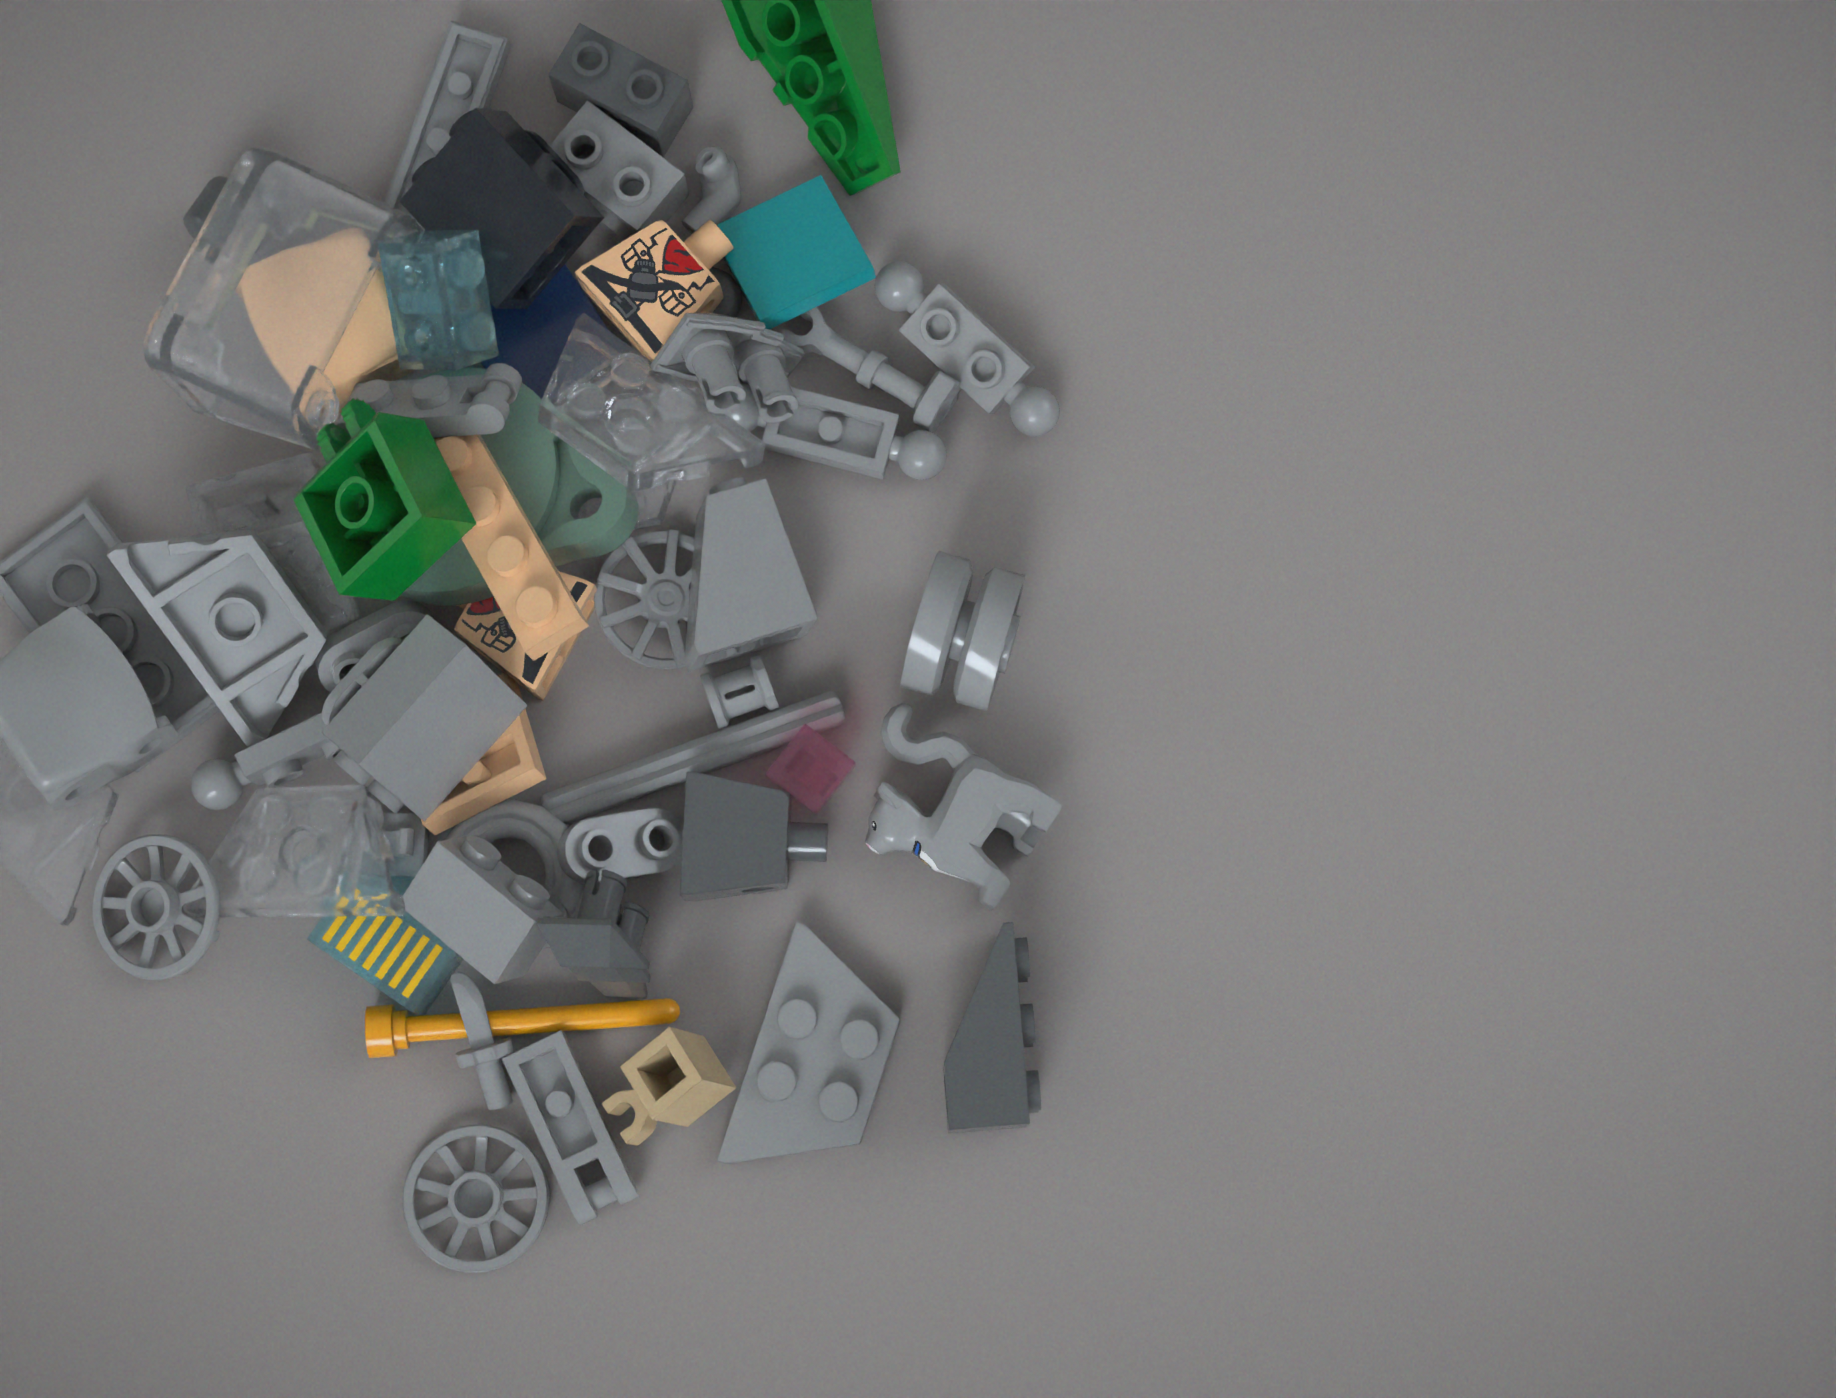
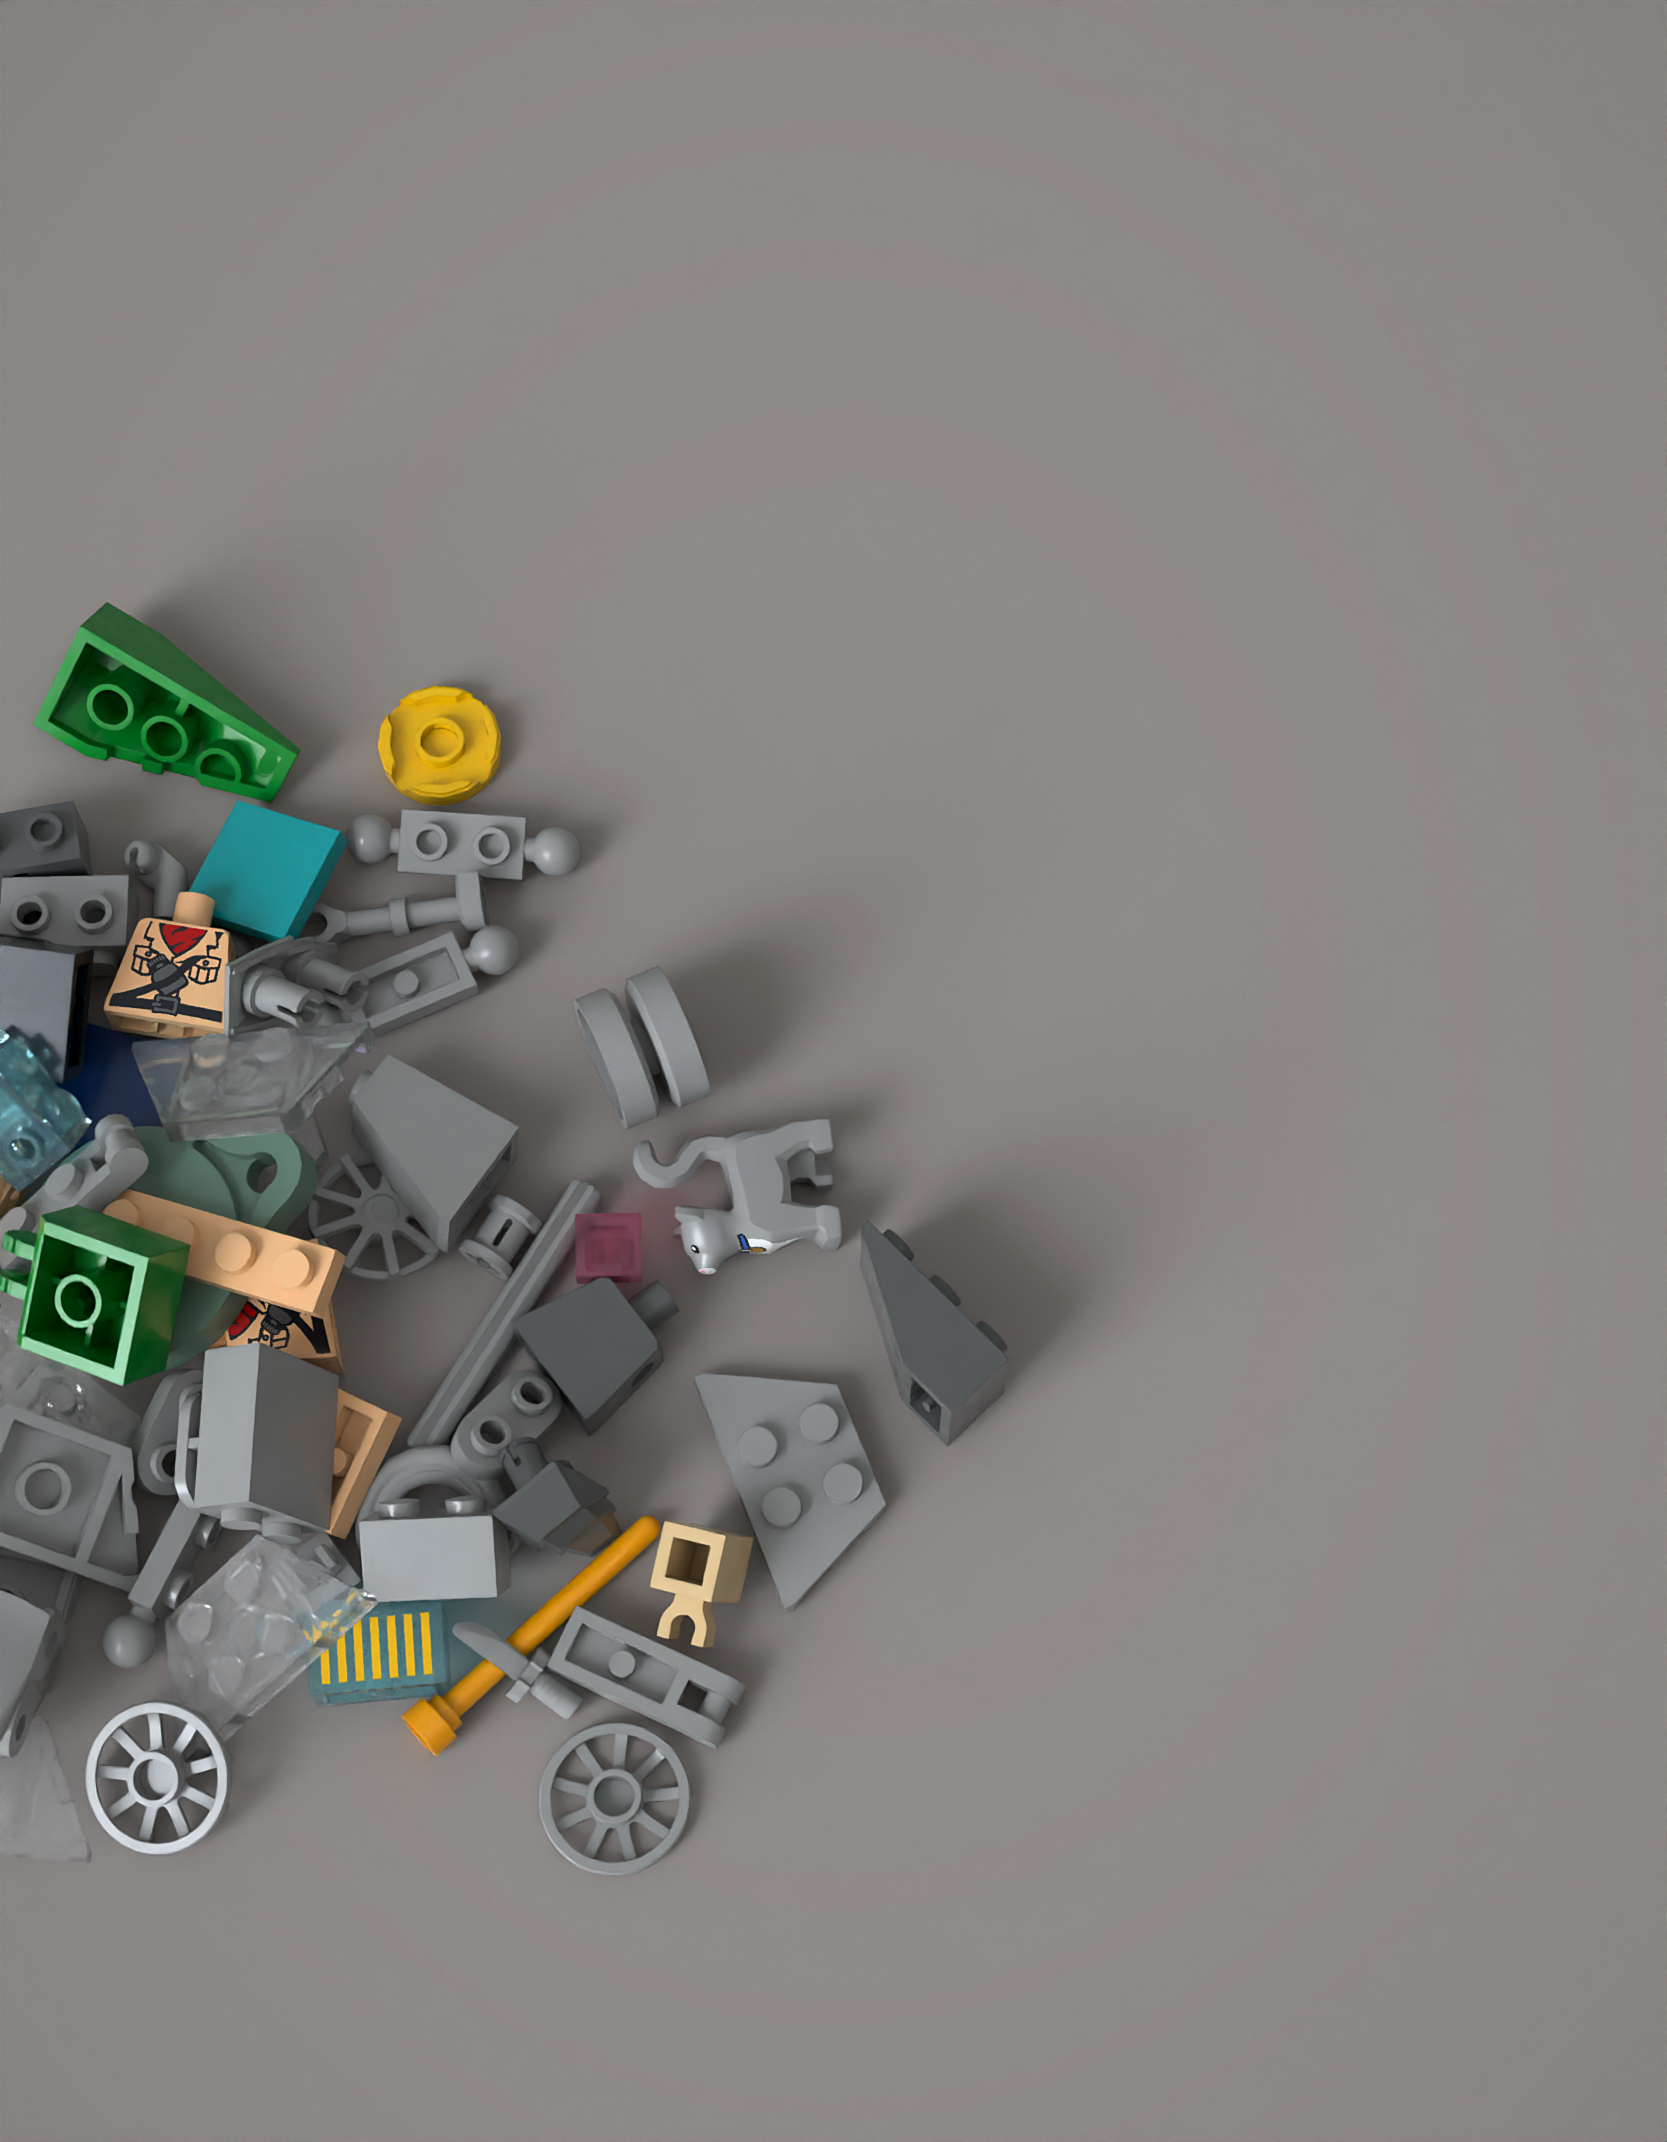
camera: 40 degrees left, 10 degrees down
(1017, 250) = (440, 746): none -> yellow tile

